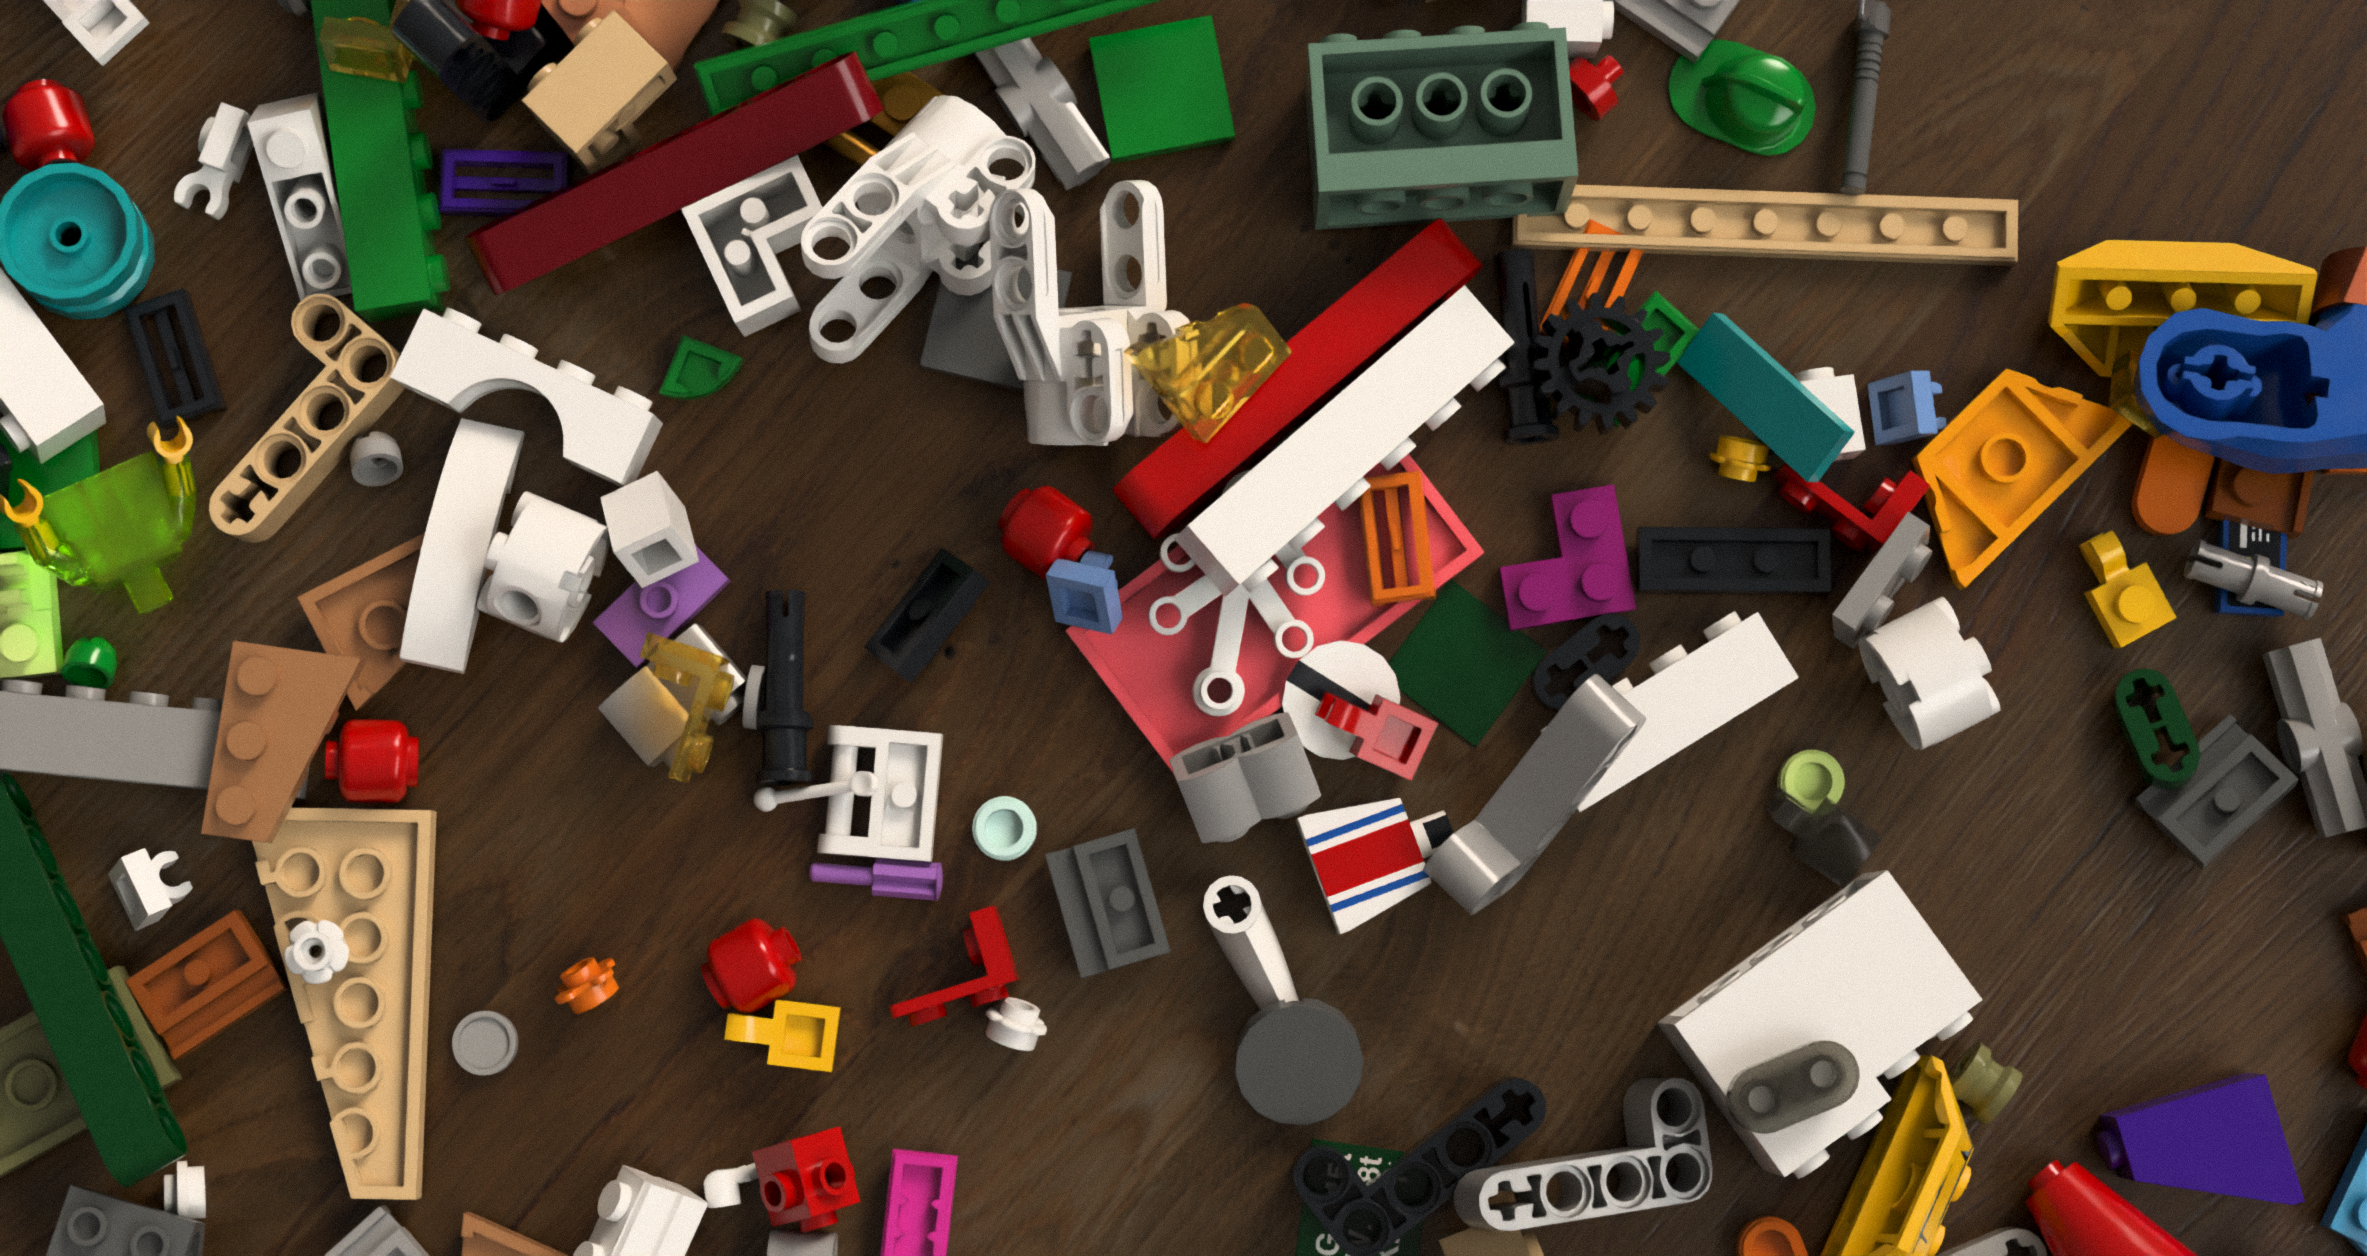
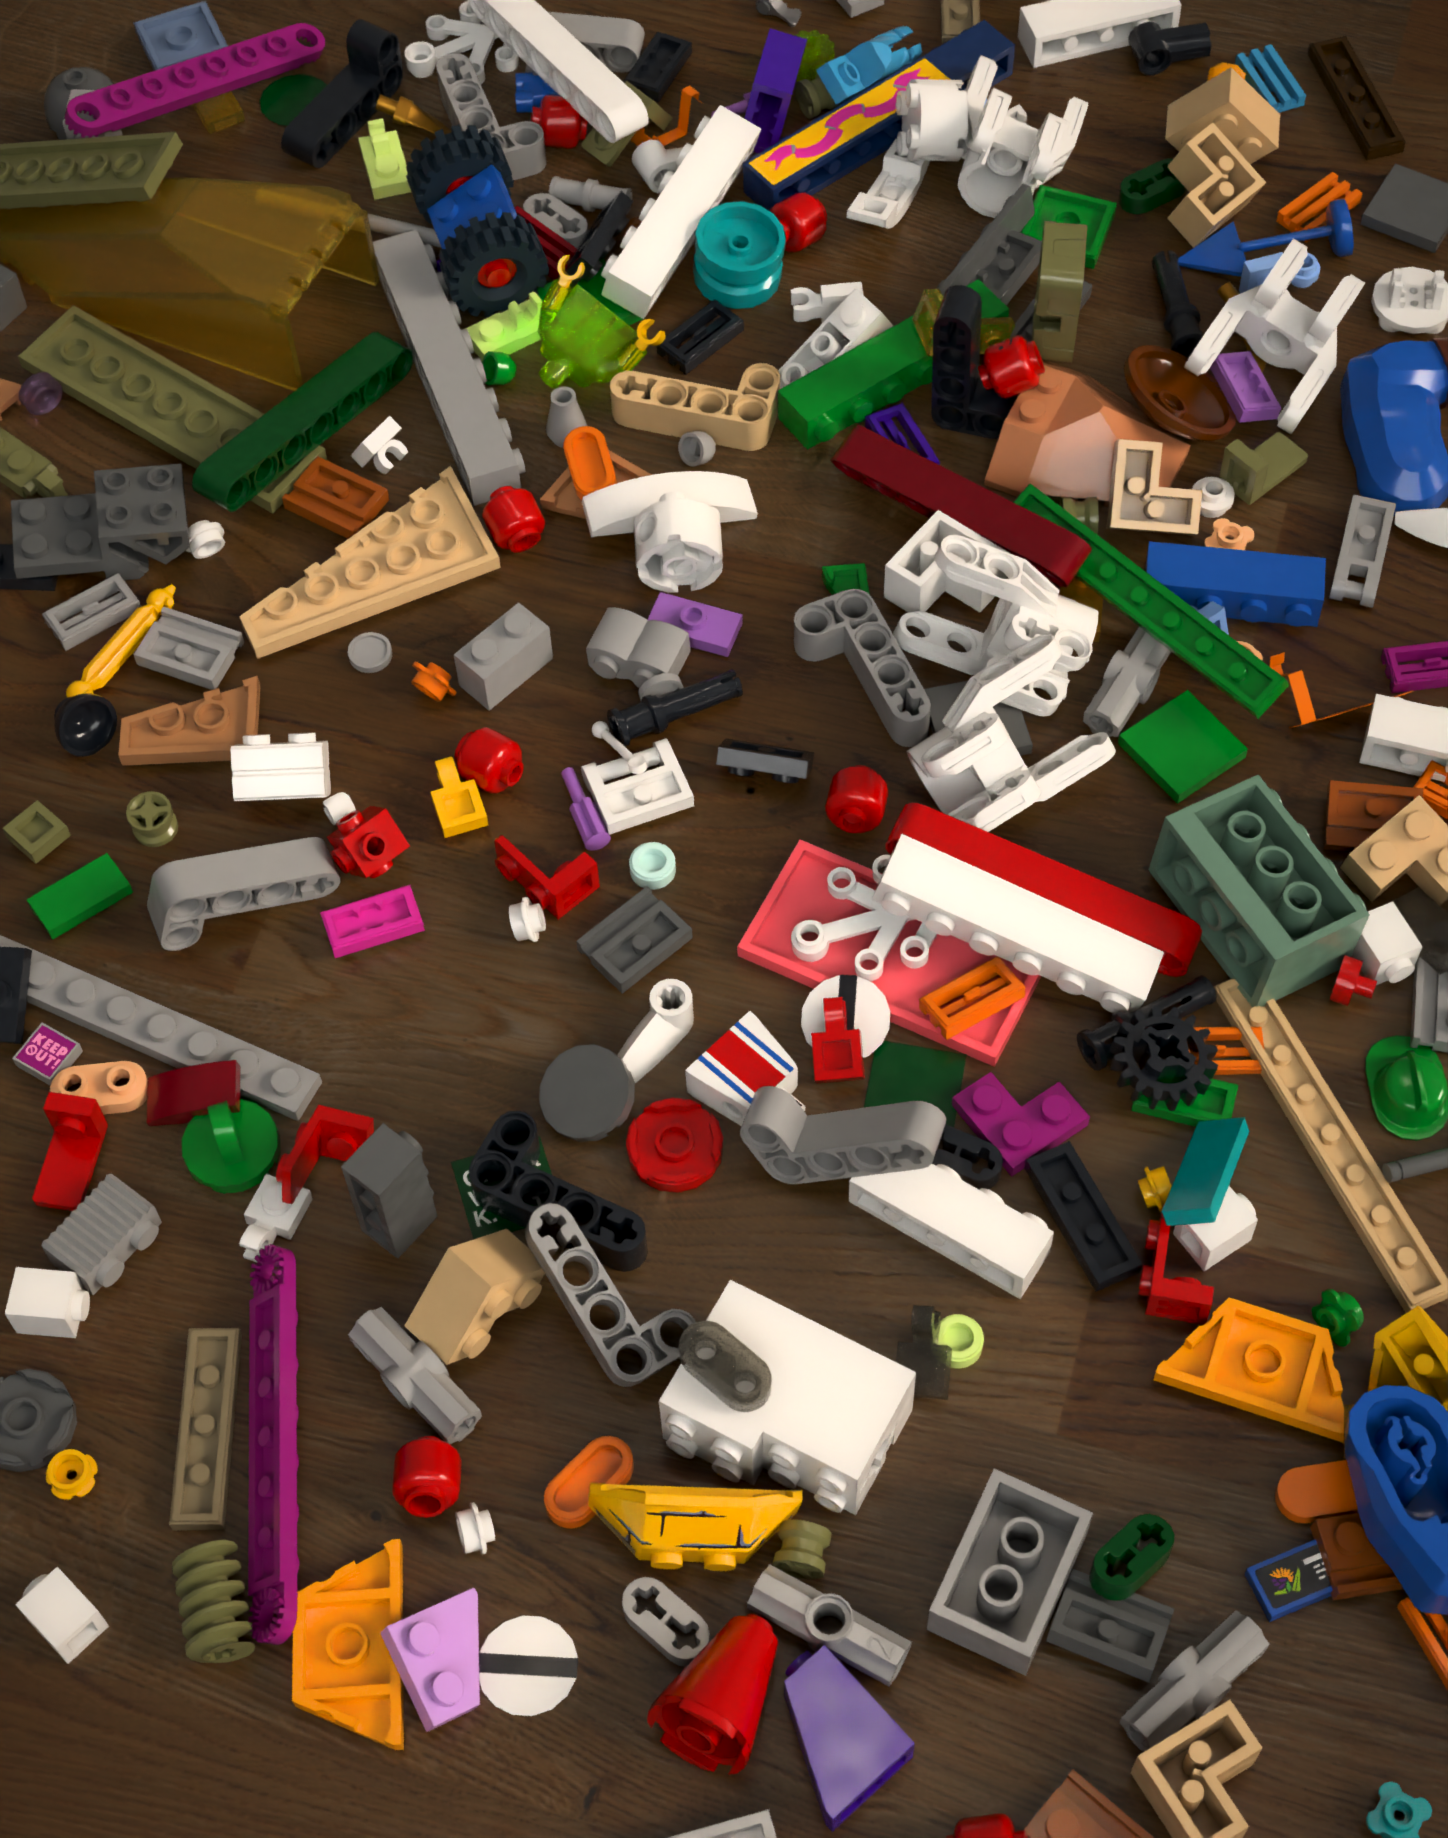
camera: 65 degrees right, 25 degrees down
(253, 618) = (563, 415): none -> light grey cone
(268, 732) = (506, 447): medium nougat wing -> none
(333, 956) = (386, 540): white plate -> none
(342, 620) = (588, 460): none -> orange tile
(458, 366) = (779, 539): white arch -> none
(598, 875) = (503, 656): none -> light grey brick
(599, 92) = (983, 440): tan brick -> none
(649, 529) = (733, 587): white brick -> none
(678, 665) = (636, 646): clear yellow bracket -> none
(858, 414) = (855, 626): none -> light grey beam
(1085, 592) = (828, 829): medium blue tile -> none
(1211, 366) = (1014, 809): clear yellow wing -> none
(1245, 778) = (759, 975): light grey brick -> none
(1407, 984) = (674, 1145): none -> red tile
(1871, 596) = (1125, 1309): light grey plate -> none
(1904, 407) = (1257, 1275): medium blue tile -> none
(1929, 674) = (1075, 1364): white brick -> none
(1991, 346) = (1339, 1314): none -> green plate
(2113, 1073) = (798, 1607): none -> light grey piece
(2122, 873) = (1009, 1571): none -> light grey brick
(2127, 598) = (1216, 1497): yellow plate -> none
(2253, 579) = (1283, 1572): light grey pin -> none

